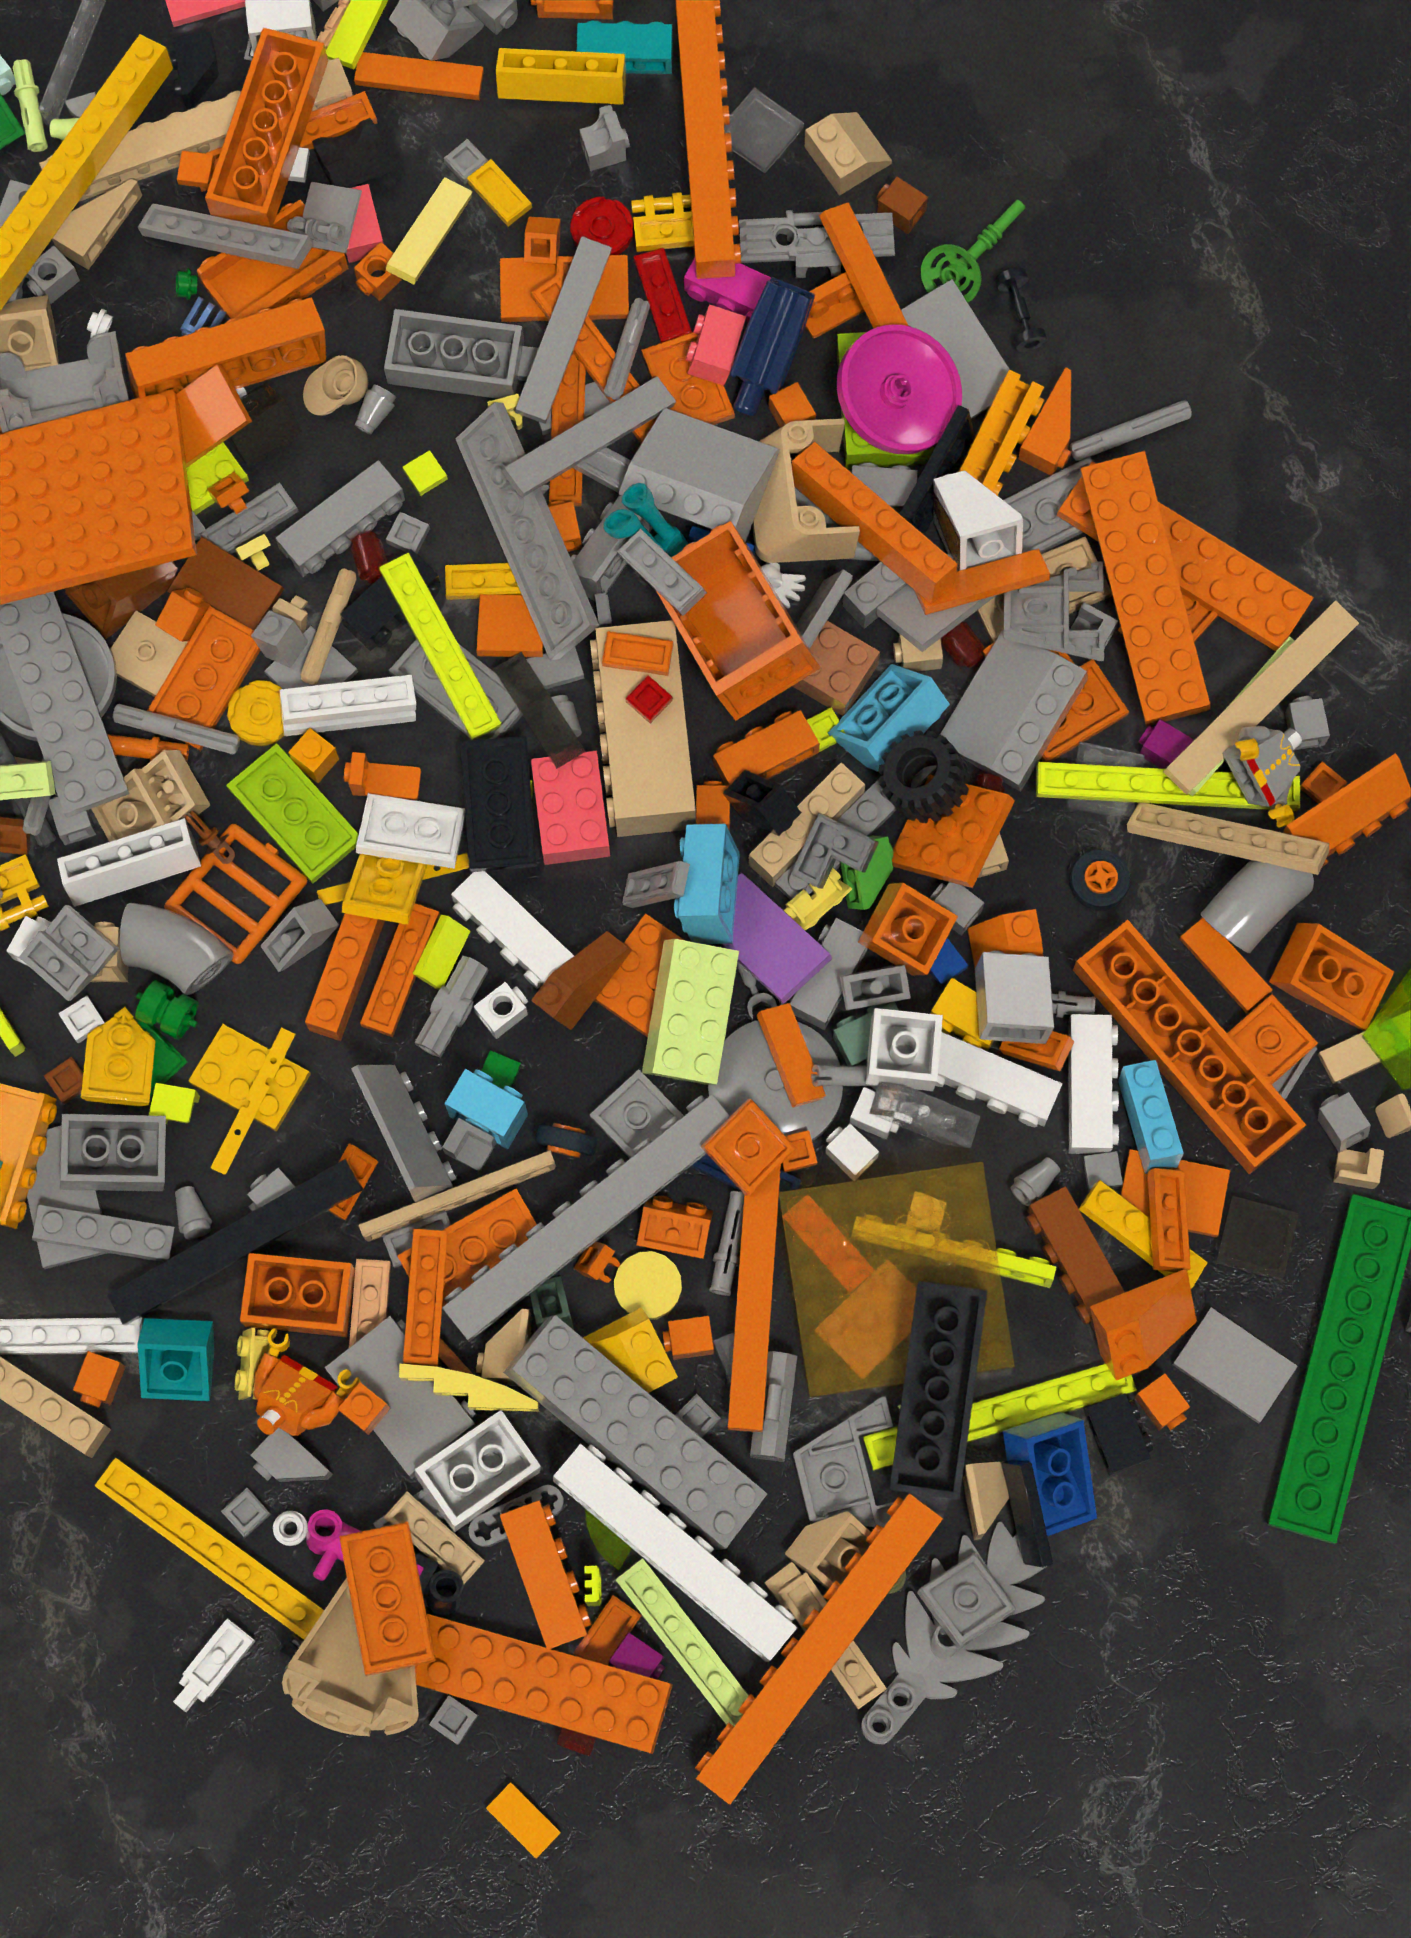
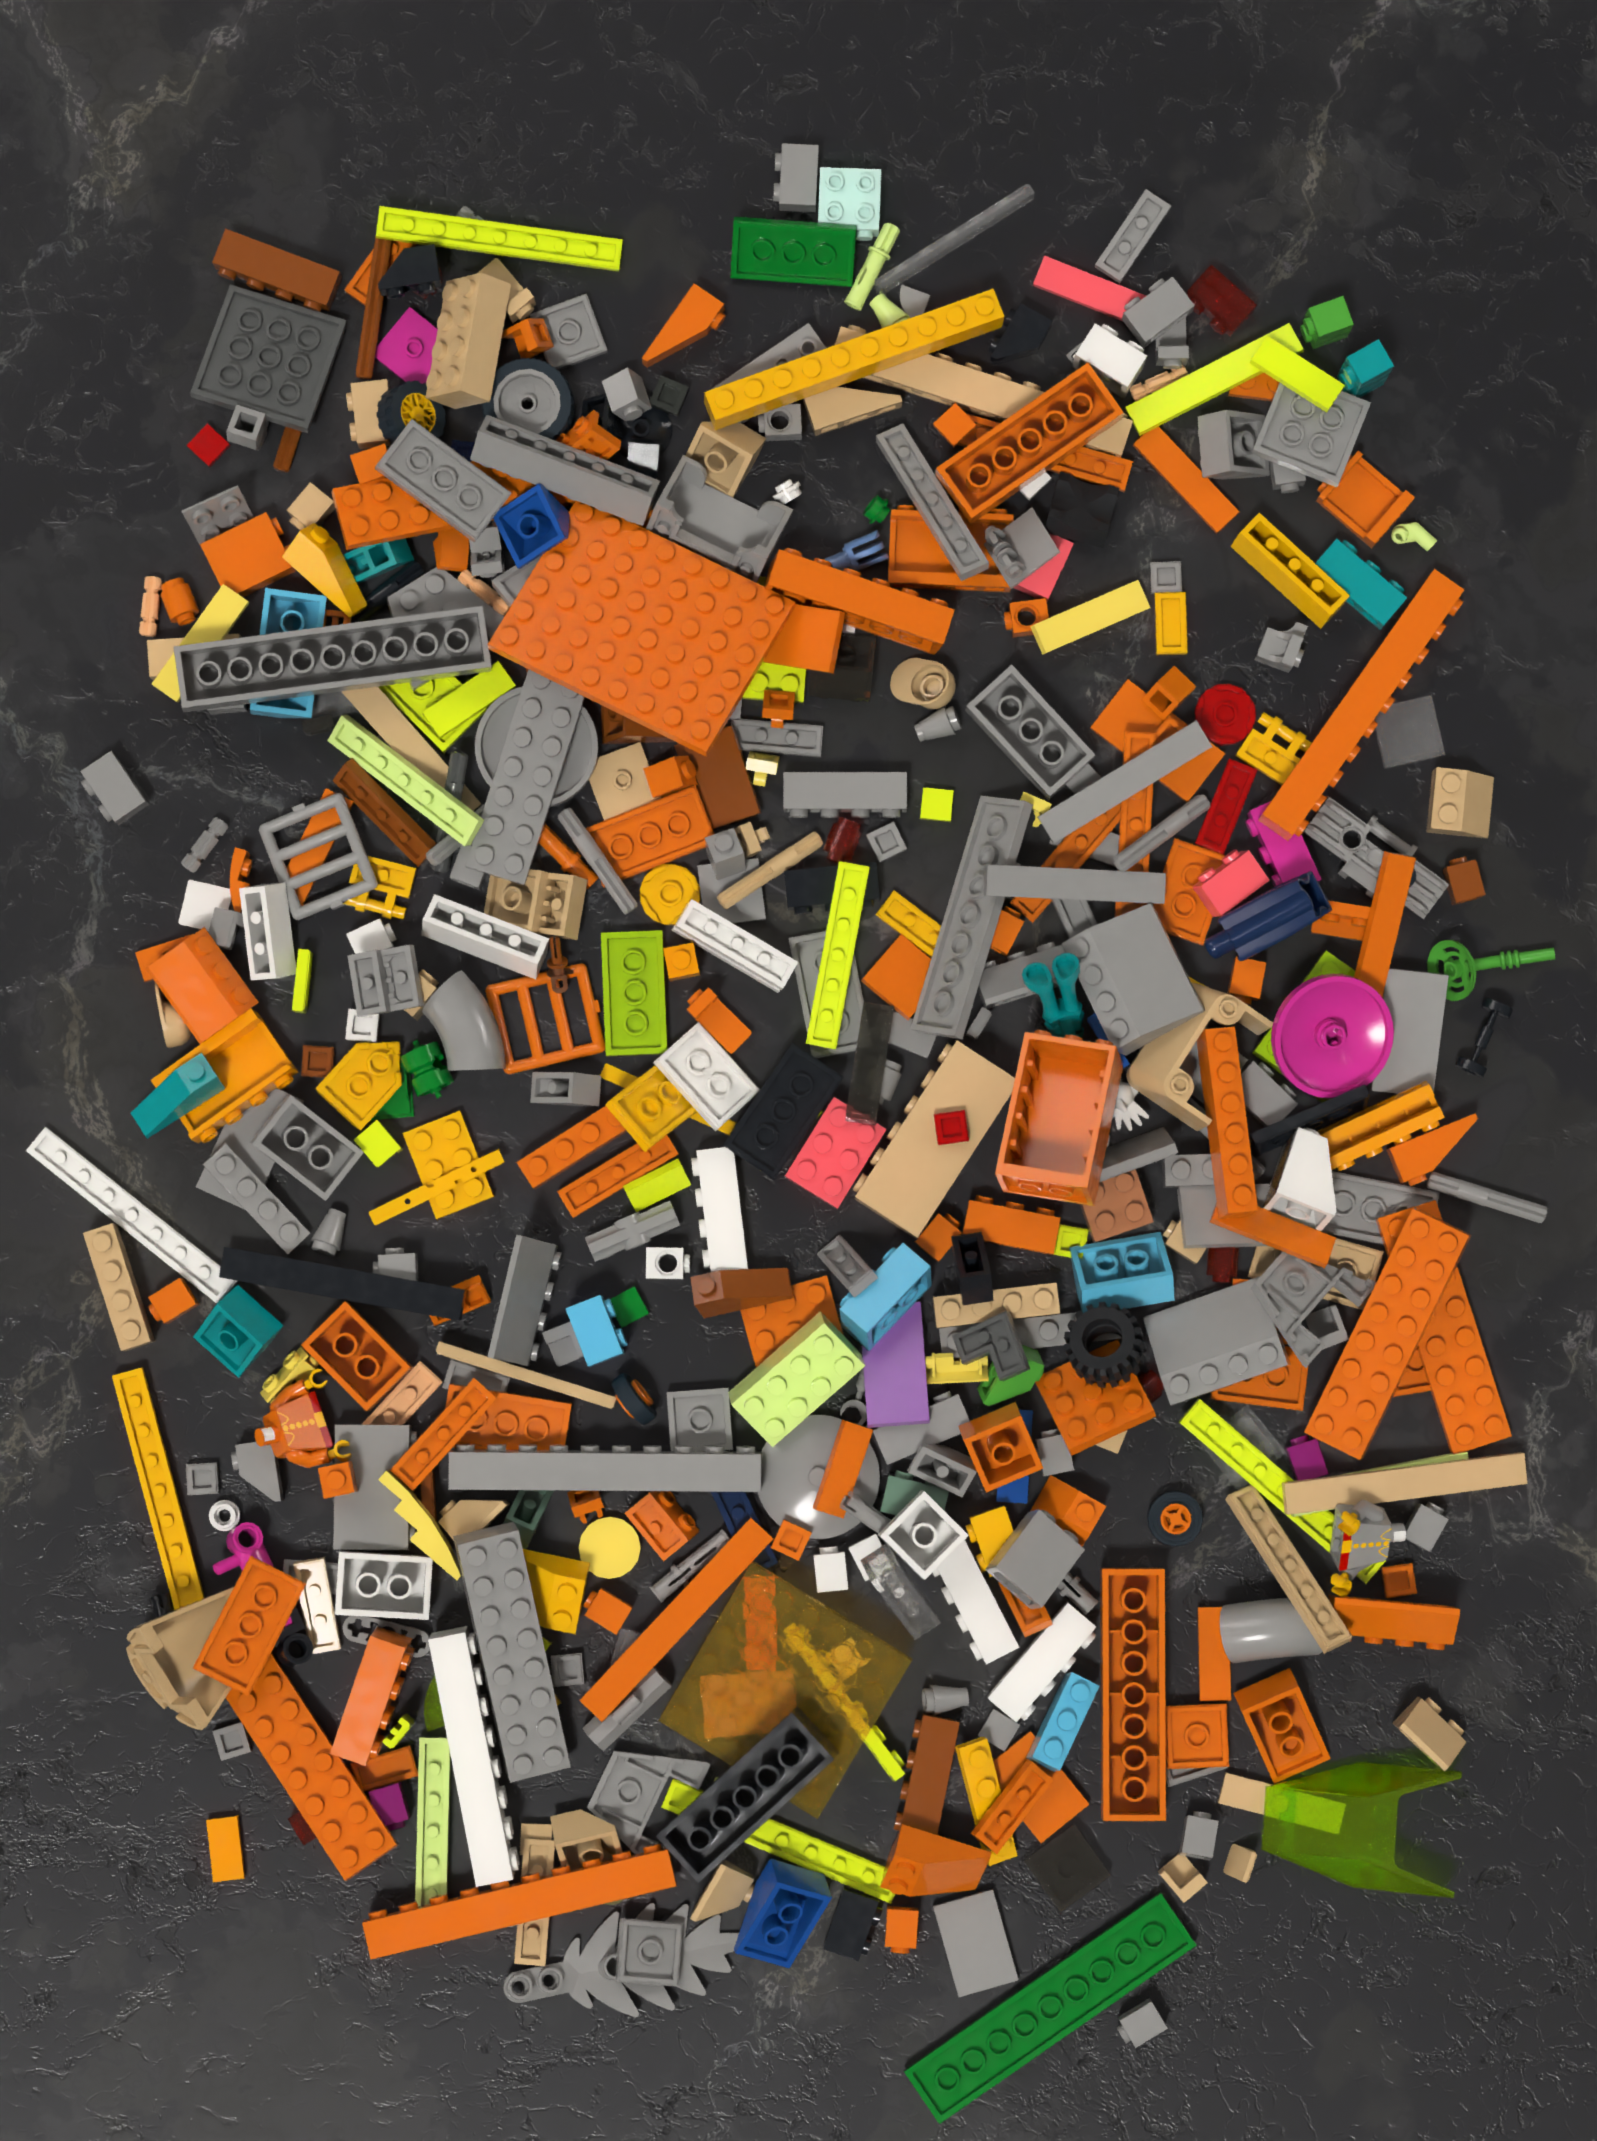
camera: 40 degrees right, 10 degrees up
(213, 1664) = (98, 1568): white hinge -> none
(637, 653) = (971, 1086): orange tile -> none
(661, 572) = (1035, 1042): light grey tile -> none
(748, 1147) = (756, 1513): orange tile -> none
(1027, 1513) = (739, 1929): black tile -> none

